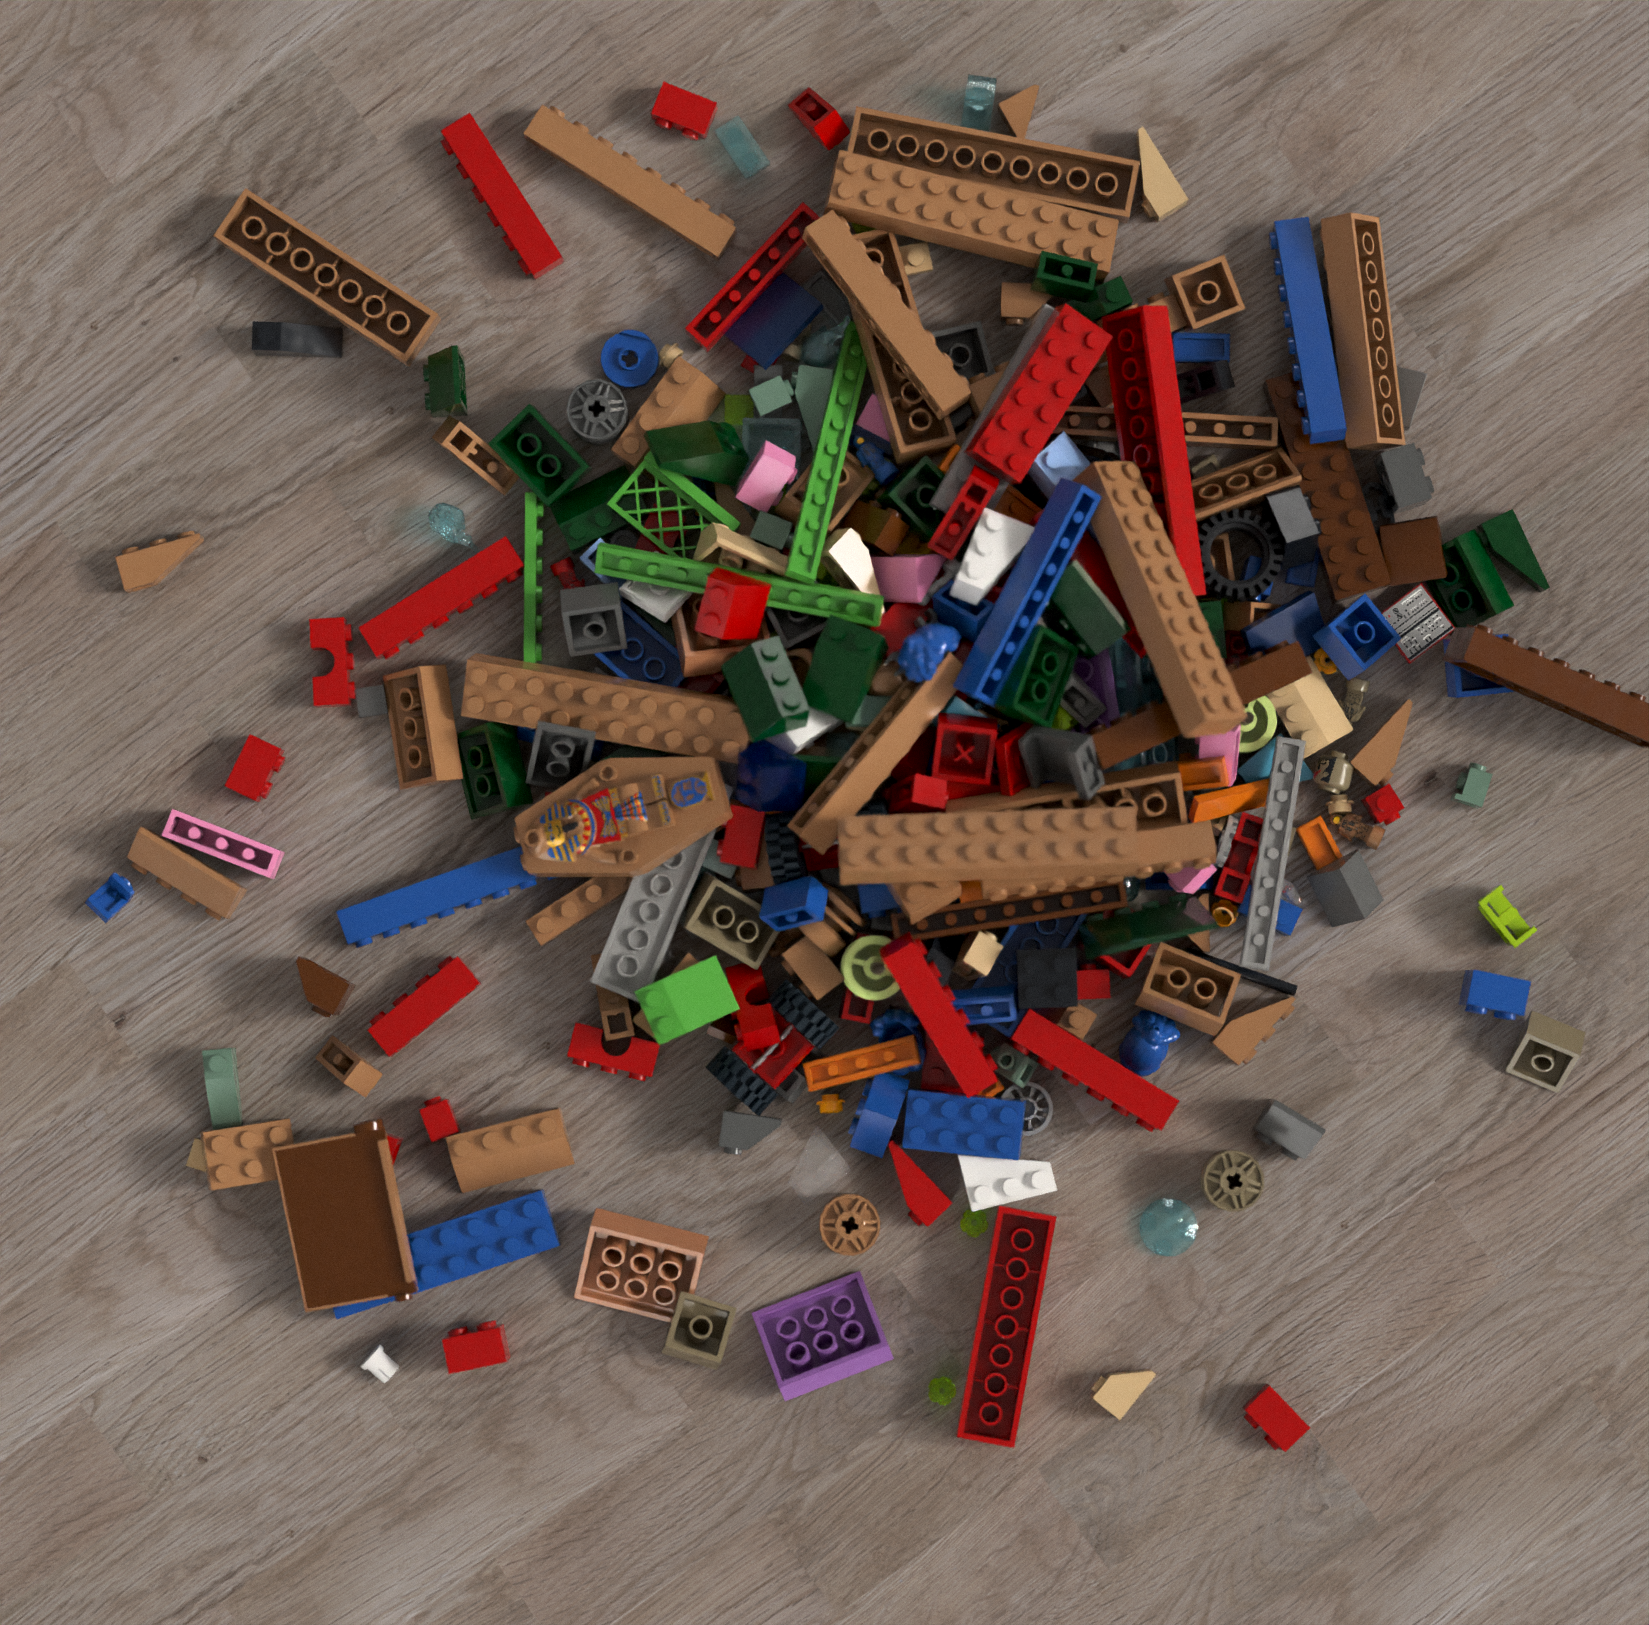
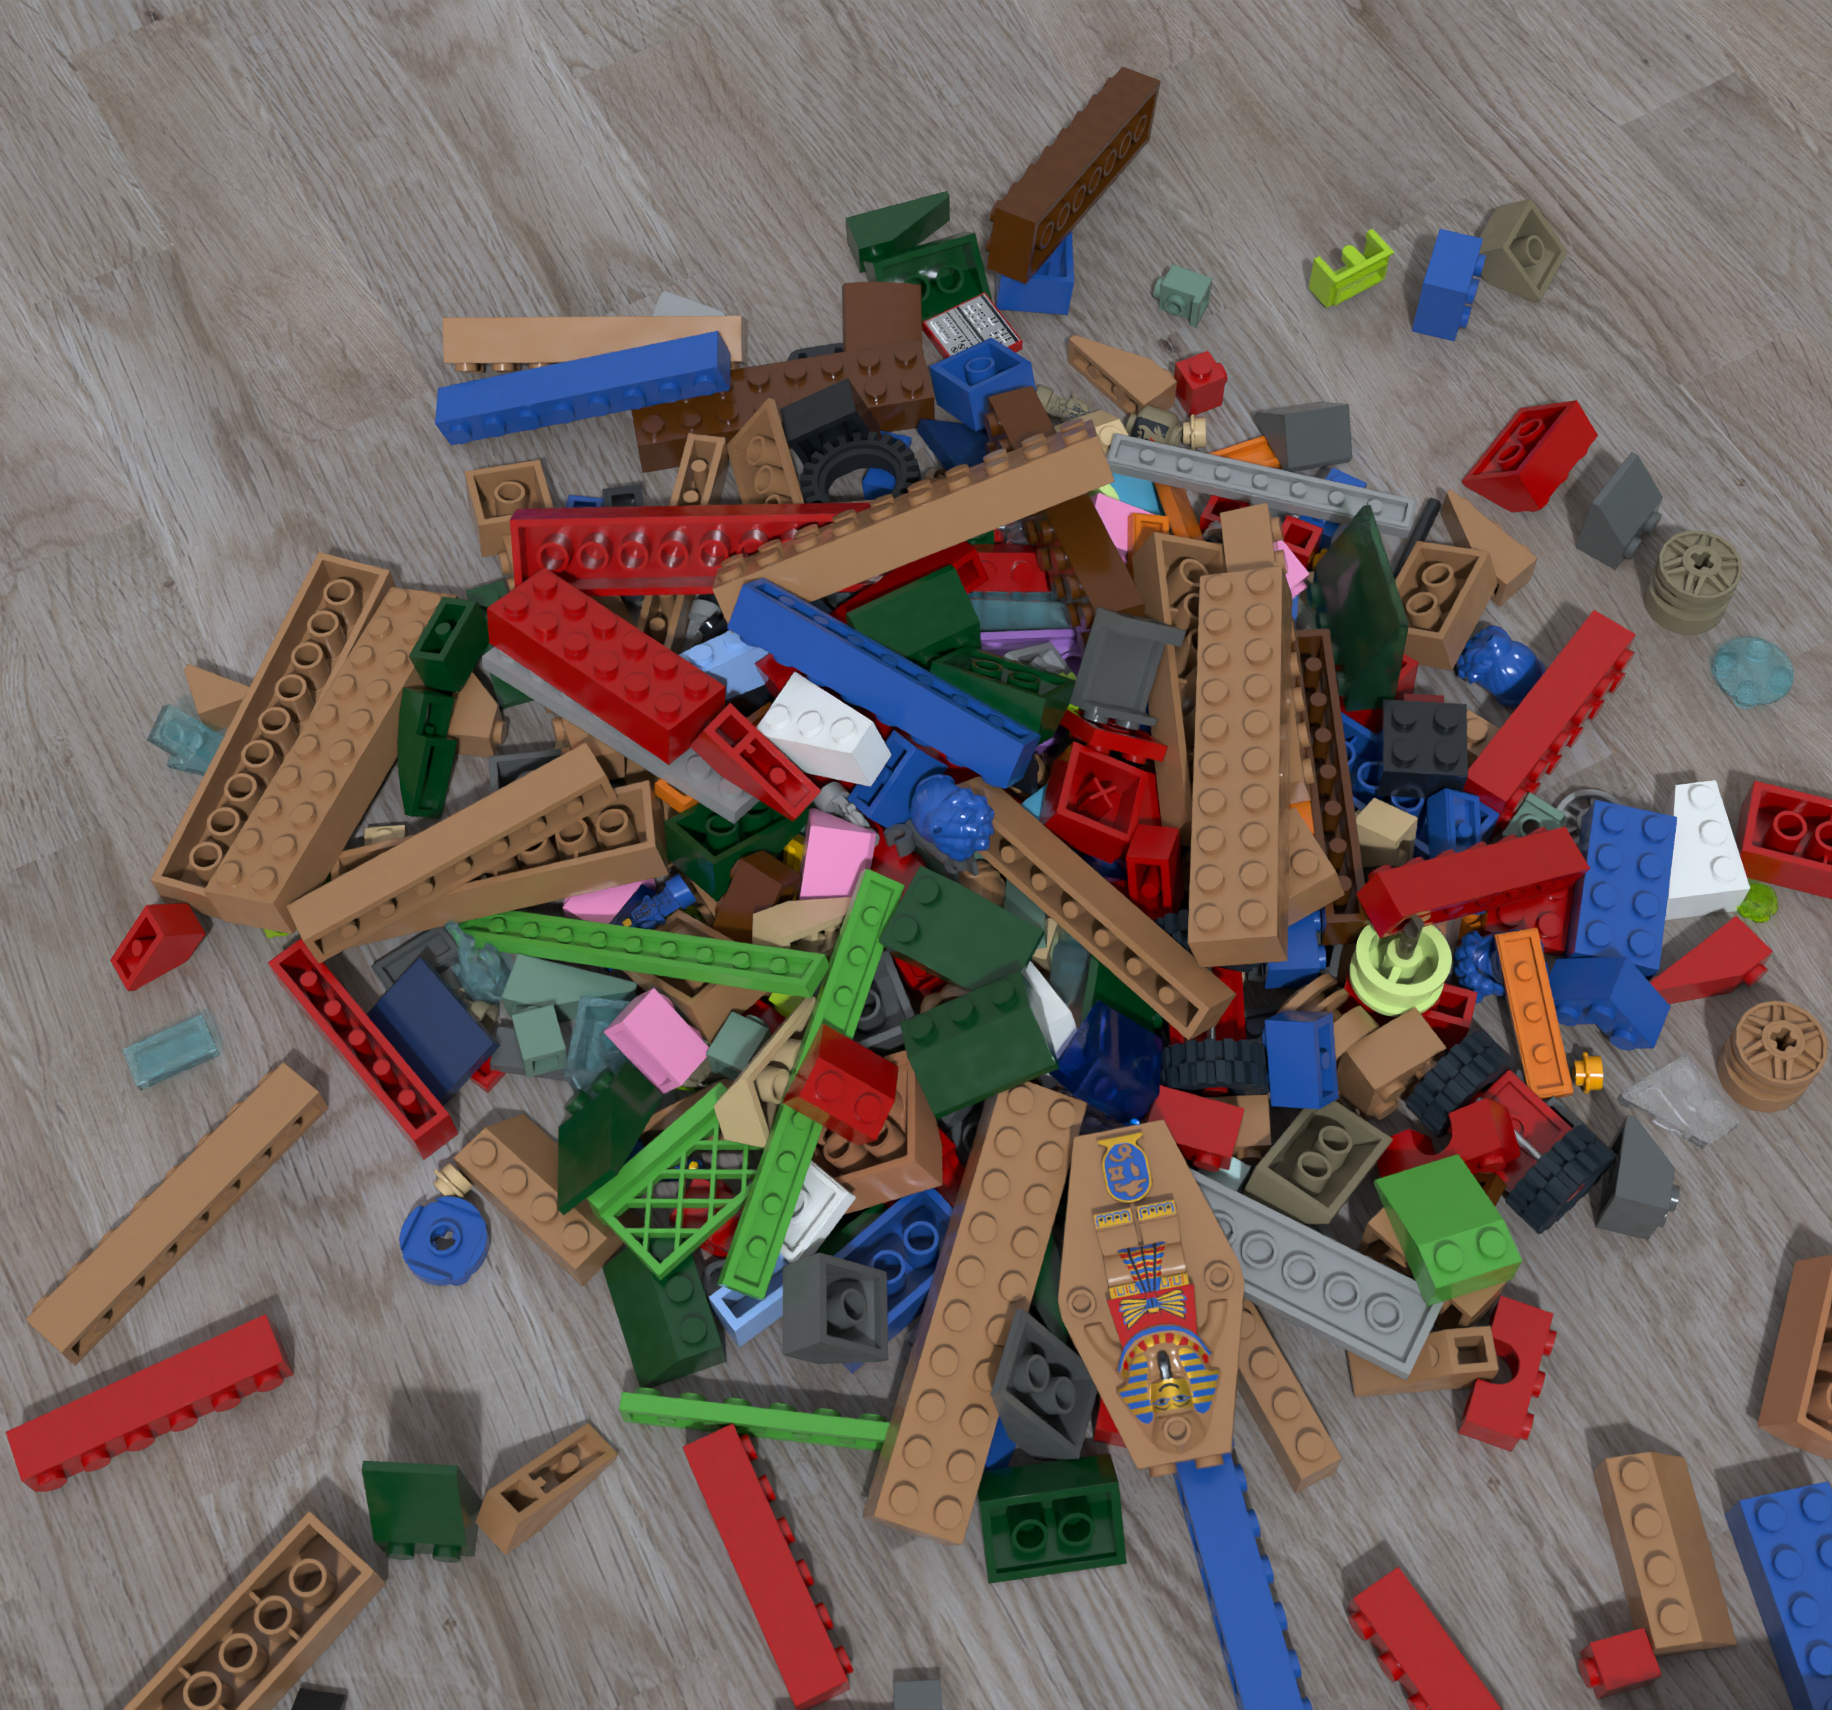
camera: 80 degrees left, 25 degrees down
(423, 726) = (970, 1622): medium nougat slope -> none
(448, 523) = (647, 1543): clear light blue piece -> none
(540, 455) = (563, 1378): dark green slope -> none
(566, 575) = (751, 1371): red piece -> none
(609, 424) = (529, 1306): dark grey wheel -> none
(683, 111) = (95, 1124): red brick -> none
(737, 408) = (547, 1098): clear neon green plate -> none
(984, 273) = (424, 751): none -> dark green slope
(1159, 187) = (362, 541): tan slope -> none
(1342, 1062) = (1532, 456): none -> red slope
(1352, 827) = (1224, 424): medium nougat piece -> none
(1404, 478) = (788, 317): dark grey brick -> none

